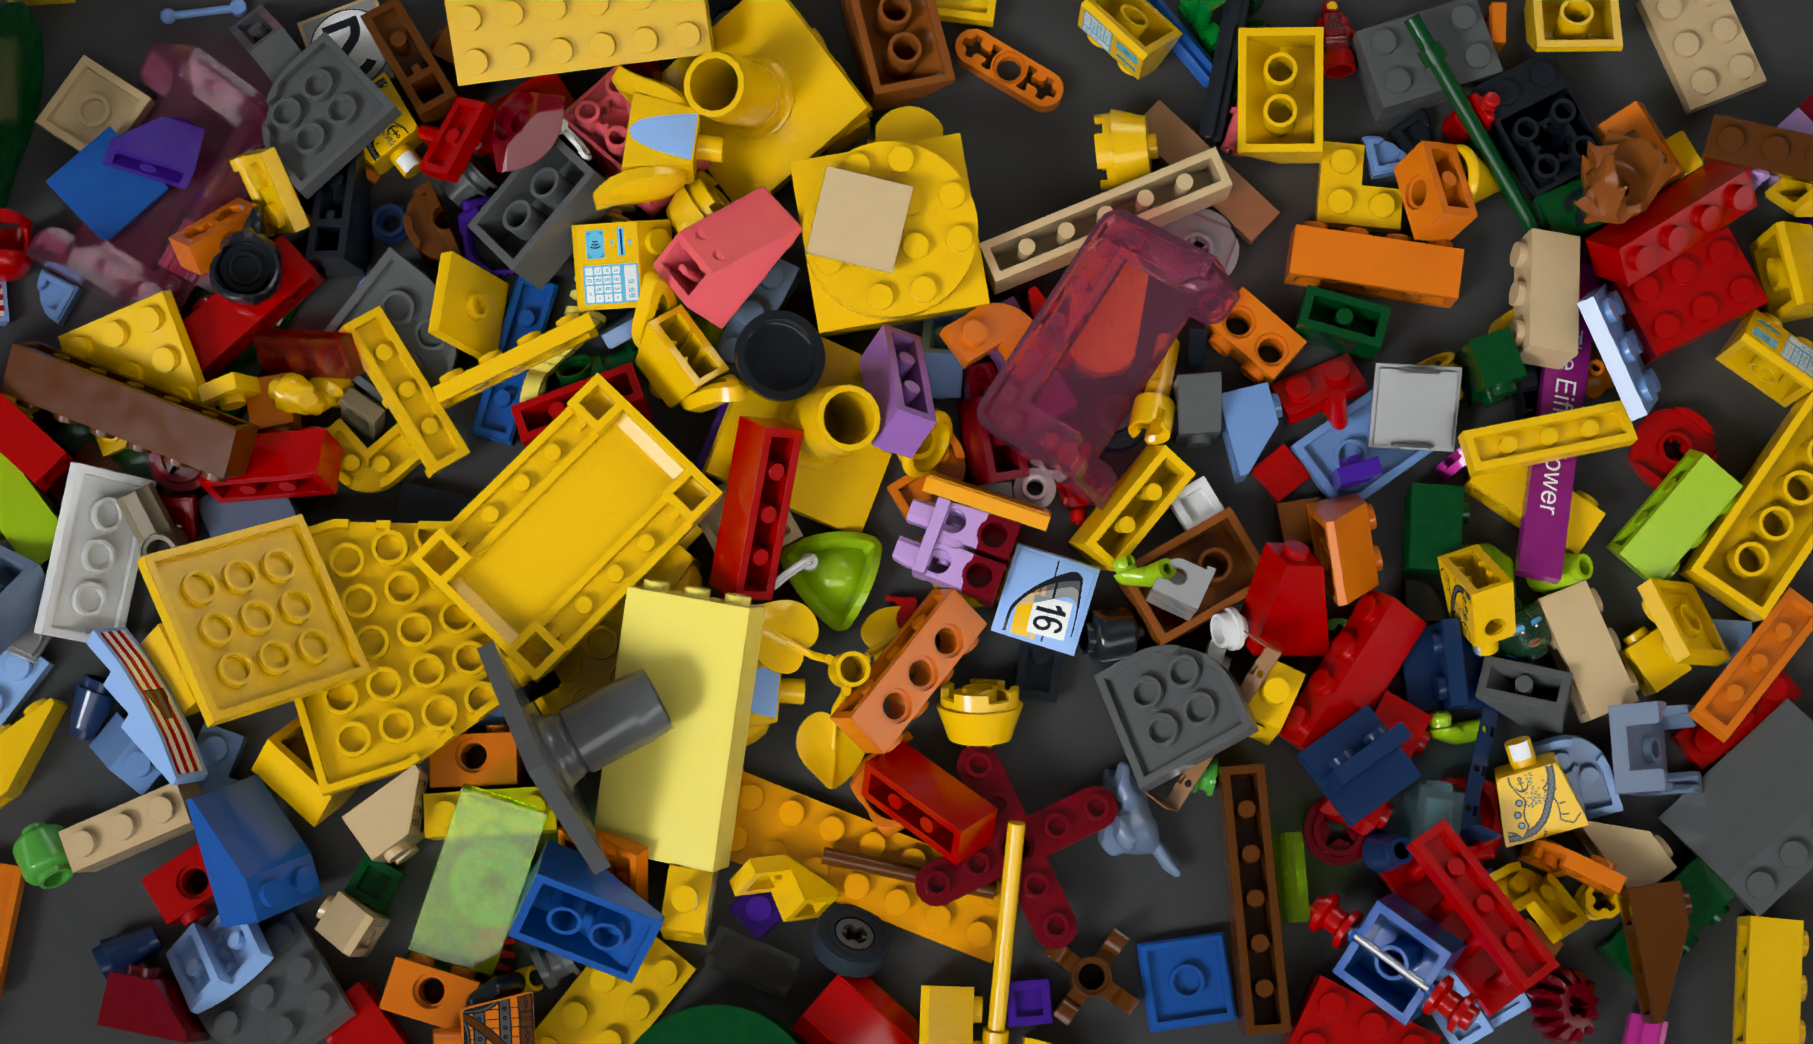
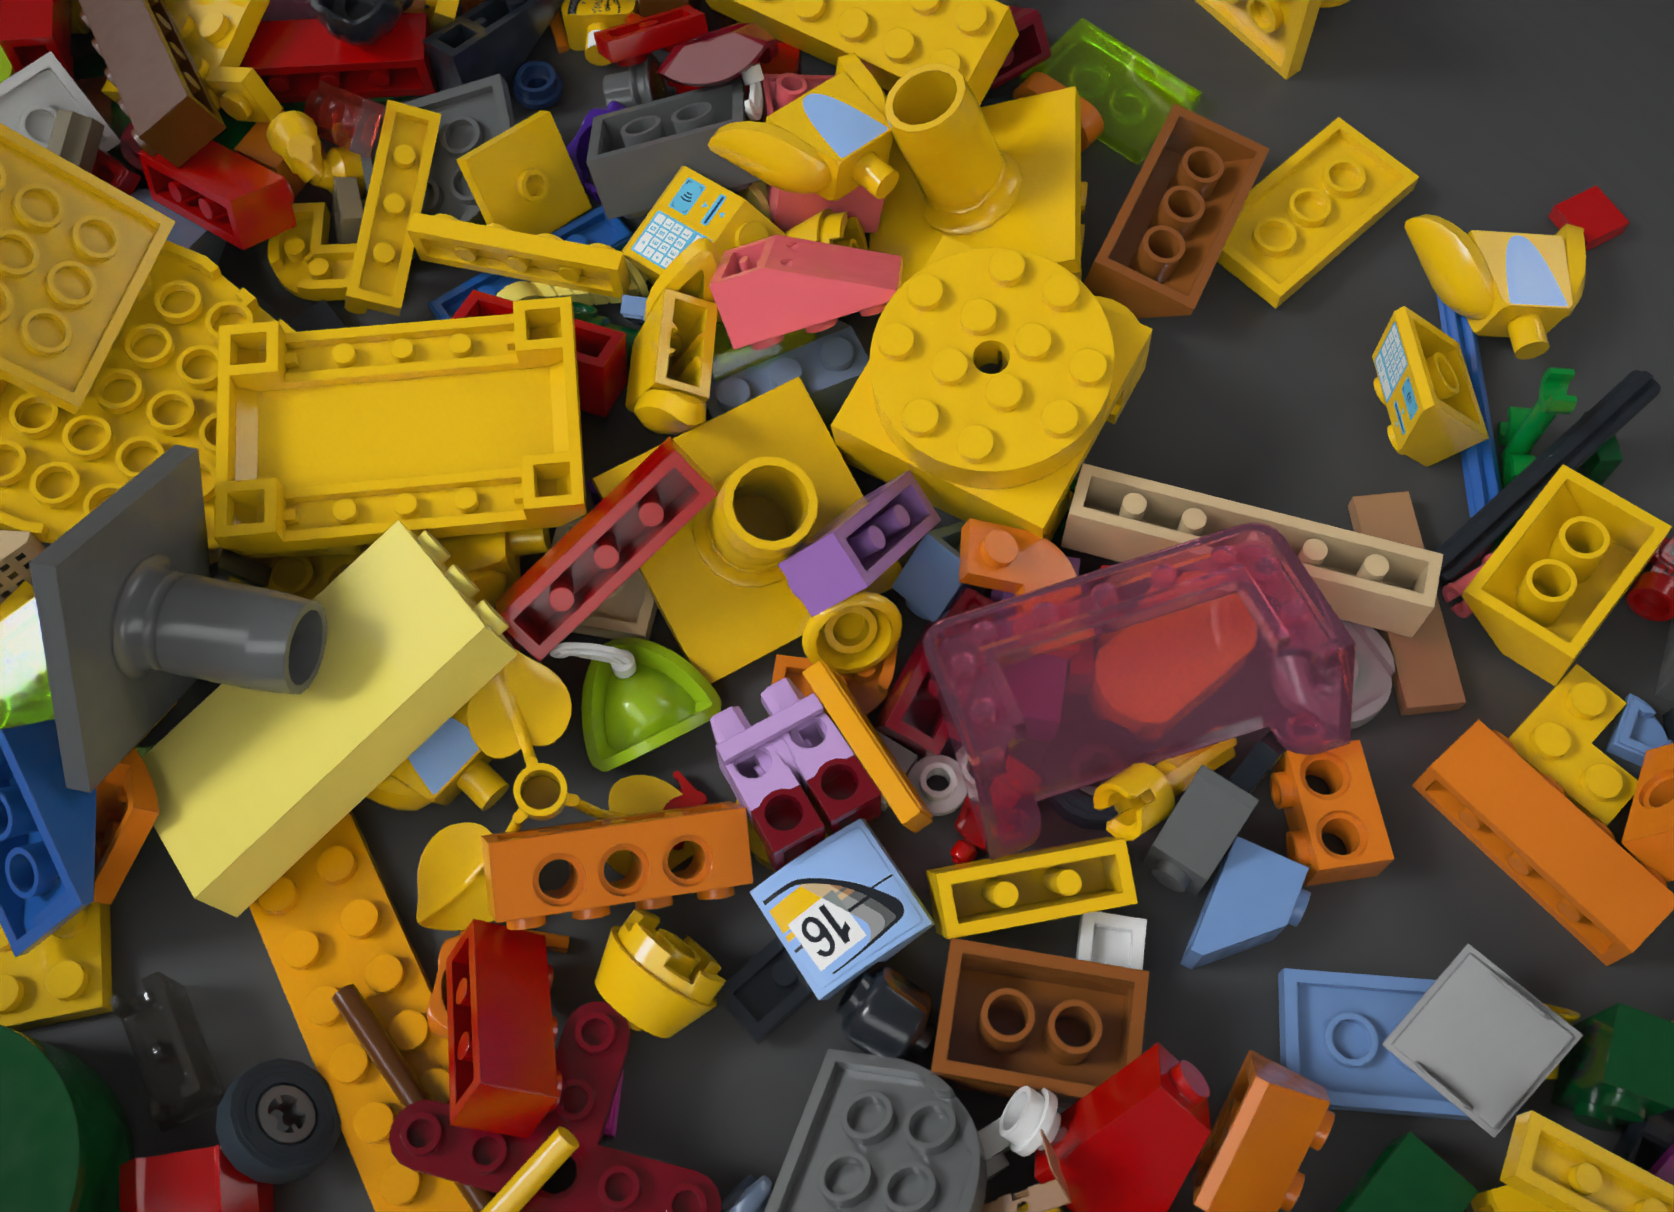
camera: 40 degrees right, 15 degrees down
(424, 225) = (567, 90): reddish brown cylinder -> none
(688, 904) = (157, 921): yellow torso -> none
(756, 913) = (233, 1000): dark purple plate -> none
(779, 356) = (769, 411): black piece -> none
(795, 889) = (282, 1011): yellow slope -> none
(859, 220) = (962, 316): tan tile -> none
(977, 64) = (1258, 380): orange beam -> none
(1124, 147) = (1333, 489): yellow cone -> none
(1145, 576) = (976, 968): lime arm -> none
(1182, 592) = (1005, 1019): light grey hinge -> none
(1280, 473) = (1244, 994): red tile -> none
(1294, 521) = (1220, 1061): dark orange tile -> none
(1321, 389) = (1371, 933): red plate -> none
(1341, 322) = (1455, 871): dark green brick -> none
(1355, 472) = (1344, 1059): dark purple plate -> none
(1450, 465) = (1478, 1155): dark pink tile -> none

